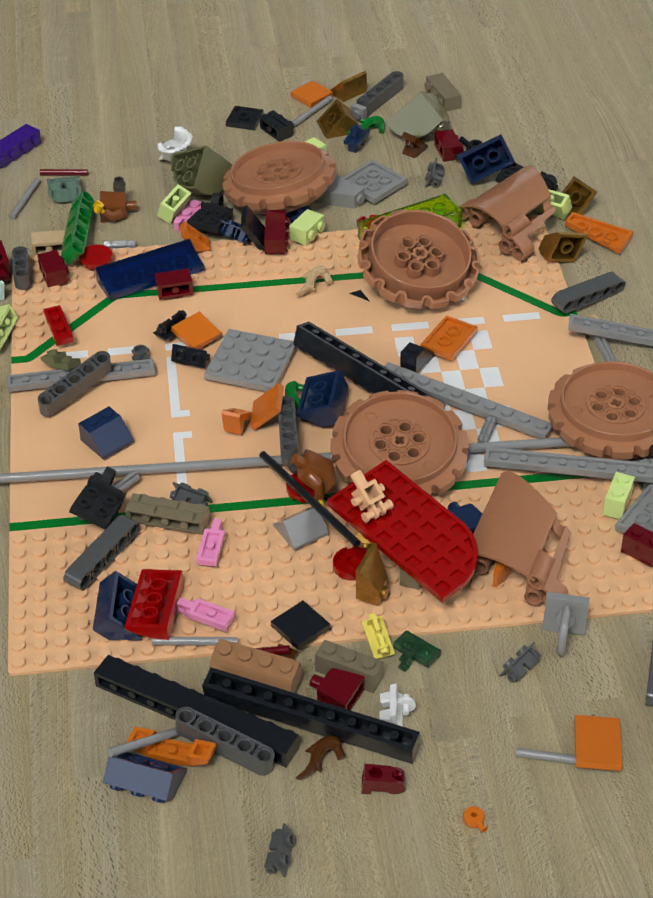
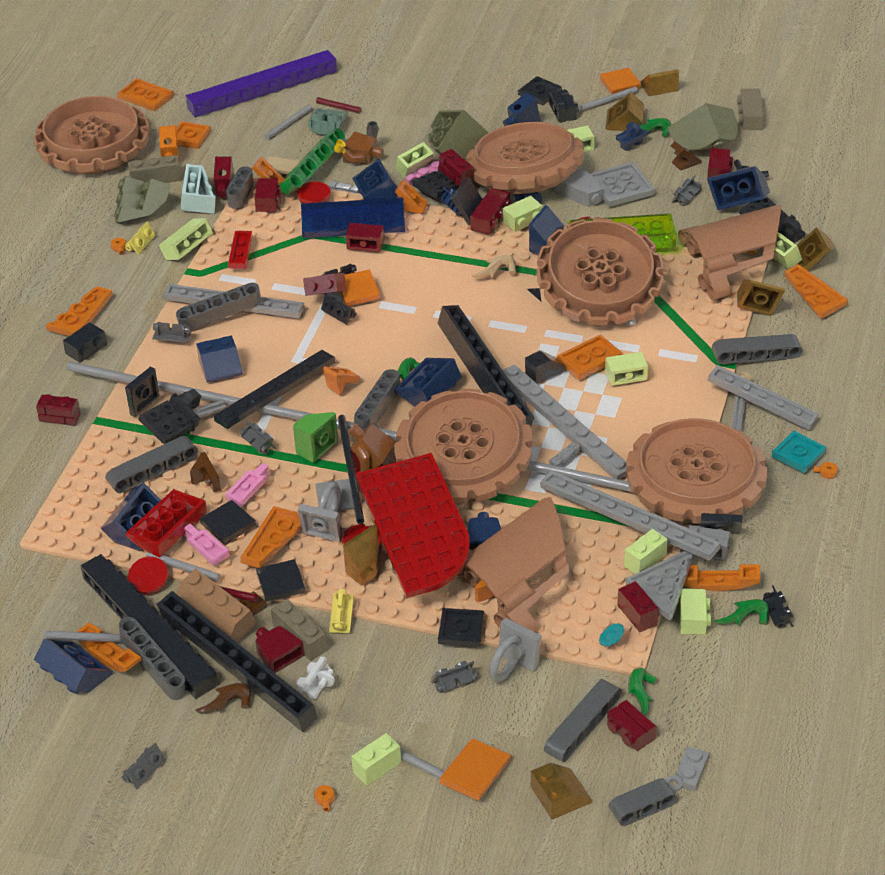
camera: 25 degrees right, 0 degrees up
(38, 246) = (265, 170): none -> orange slope
(48, 419) = (177, 333): none -> dark grey hinge
(52, 484) = (142, 391): none -> black tile
(60, 360) = (221, 281): olive slope -> none
(140, 352) = (296, 294): dark grey plate -> none
(152, 231) = (376, 182): none -> dark blue slope
(163, 542) = (204, 471): none -> reddish brown slope
(165, 660) = (148, 575): none -> red tile
(167, 335) = (324, 284): none -> dark red brick
(168, 513) = (227, 446): dark tan brick -> none
(178, 446) = (274, 389): none -> black plate
(179, 143) = (451, 102): white hair -> none
(212, 584) = (227, 521): none -> black tile
(223, 200) = (455, 166): none -> dark red brick
(247, 138) = (523, 110): none -> dark blue torso
(250, 360) = (391, 328): light grey plate -> none
(250, 477) = (315, 435): none -> bright green slope
(267, 406) = (372, 374): orange tile -> none
(268, 582) = (271, 536): none -> orange wing
(311, 555) = (323, 522): none -> light grey tile
(342, 239) = (542, 228): none -> dark blue slope
(359, 111) = (651, 110): light grey plate -> none
(369, 496) = (388, 479): light nougat piece -> none
(381, 92) = (685, 96): dark grey beam -> none
(382, 779) = (264, 735): dark red leg -> none
(415, 649) = (367, 633): clear green plate -> none
(490, 338) = (626, 368): none -> yellowish green brick
(498, 615) = (461, 627): none -> black tile
(503, 765) = (376, 759): none -> yellowish green brick
(637, 578) = (611, 634): none -> teal piece

